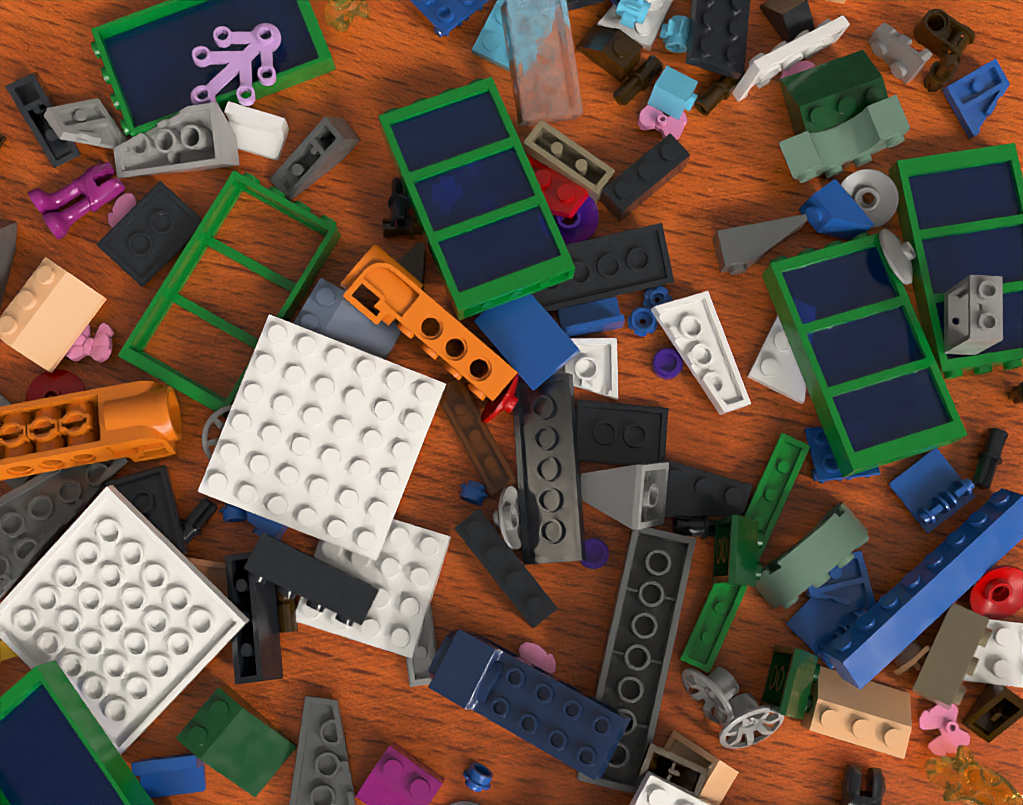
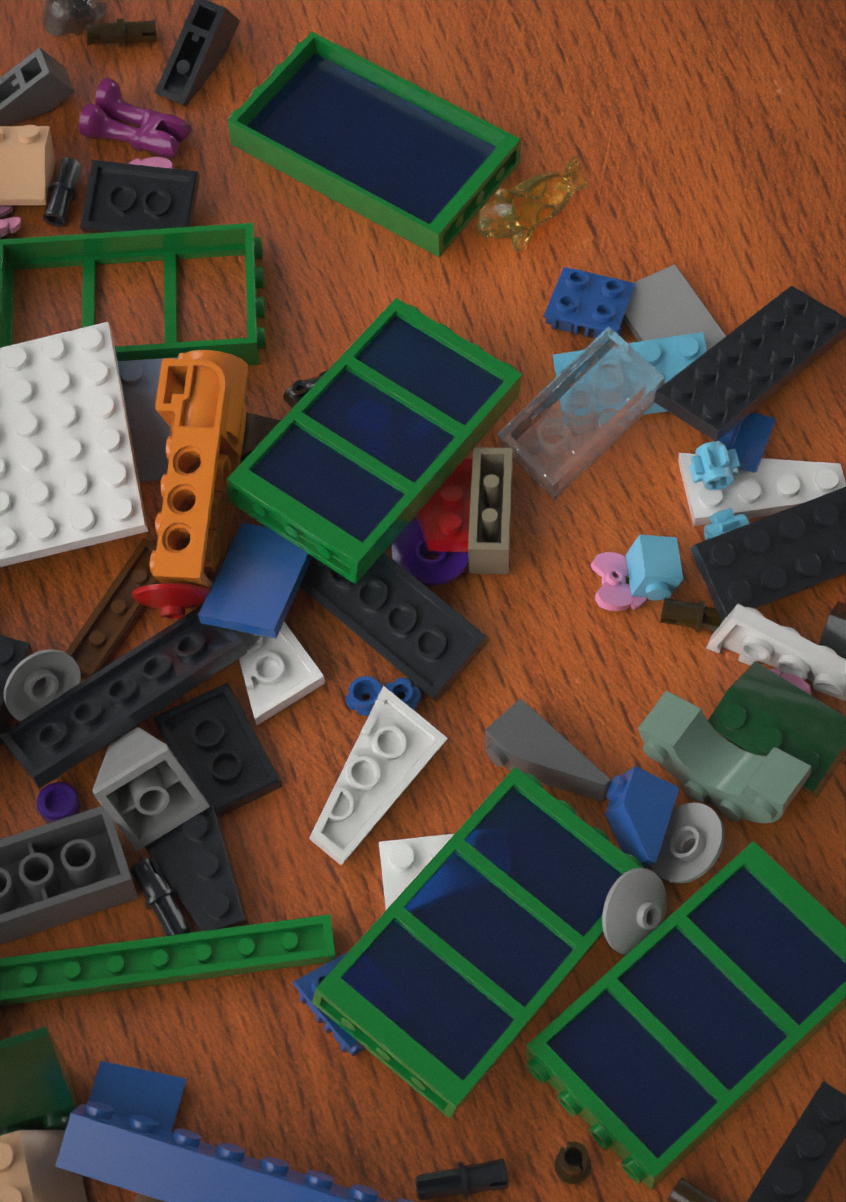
camera: 60 degrees right, 20 degrees down
(85, 123) = (213, 84): light grey wing -> none
(101, 281) = (62, 192): none -> black axle
(186, 142) = (252, 171): light grey wedge -> none
(238, 62) = (366, 161): lavender plant -> none
(257, 130) = (314, 226): white panel -> none
(315, 156) = (327, 287): dark grey slope -> none
(473, 493) = (52, 638): blue plate -> none
(591, 318) = (331, 642): blue panel -> none
(611, 50) = (656, 486): dark brown slope -> none
(638, 80) = (632, 526): dark brown axle -> none
(644, 177) = (532, 596): black brick -> none
(667, 363) = (332, 751): dark purple tile -> none
(736, 551) = (137, 920): dark green slope -> none
(812, 557) = (209, 1025): sand green brick -> none
(847, 585) = (190, 1085): blue wing -> none
(932, 490) = (376, 1137): blue hinge -> none
(979, 312) = (594, 1021): light grey window -> none

